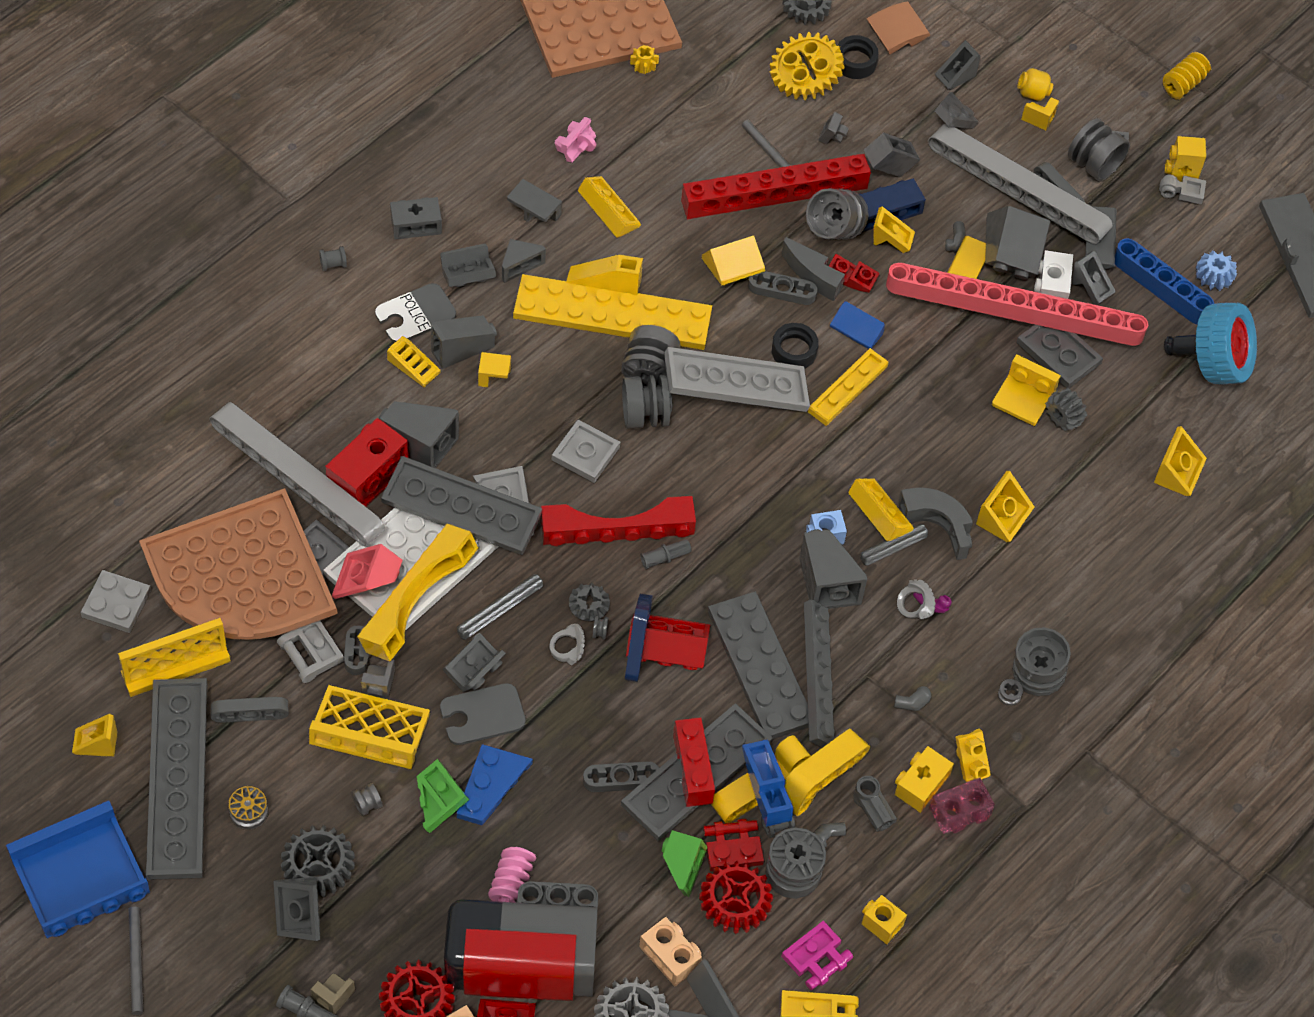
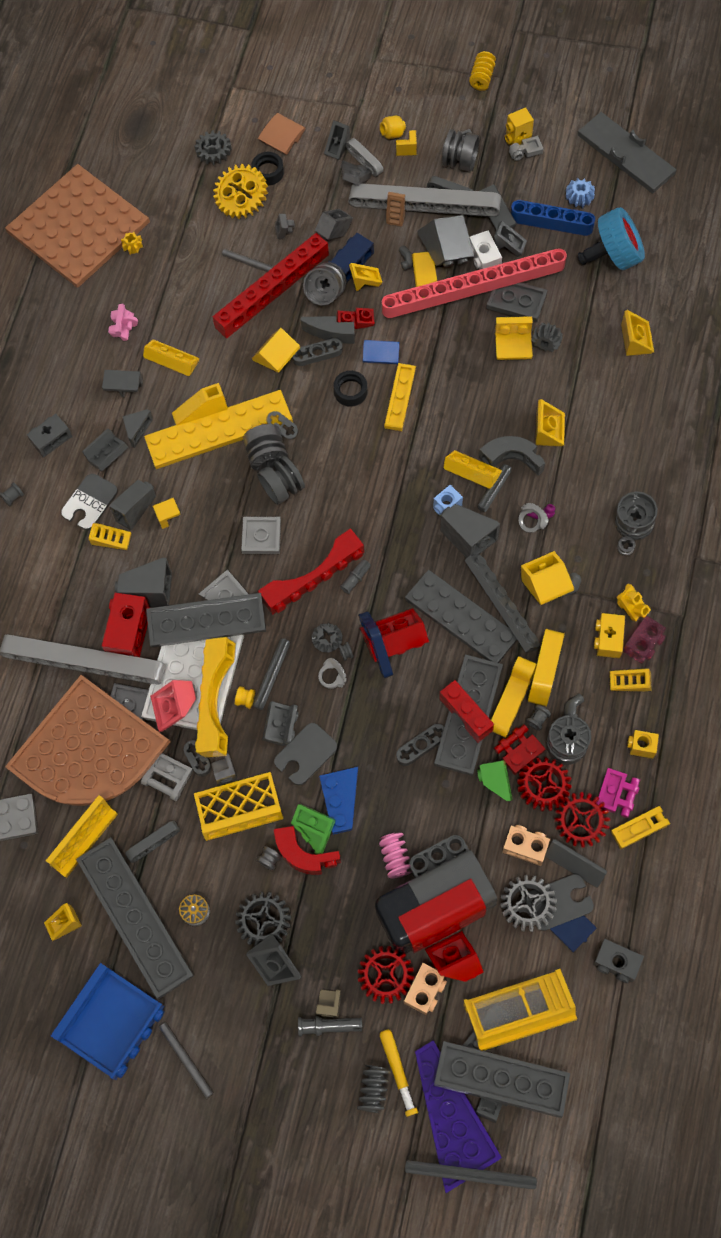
camera: 20 degrees left, 10 degrees up
(402, 824) = (299, 859): none -> red arch
(452, 613) = (244, 697): none -> yellow wheel
(693, 340) = (285, 421): none -> dark grey beam
(736, 379) = (330, 433): light grey plate -> none
(767, 783) = (520, 697): blue slope -> none
(776, 957) = (568, 829): none -> red gear
(874, 805) = (592, 670): dark grey piece -> none
(888, 672) = (546, 578): none -> yellow slope
(922, 855) = (630, 673): none -> yellow slope
(977, 179) = (395, 210): none -> medium nougat slope
(979, 101) = (364, 157): none -> light grey beam

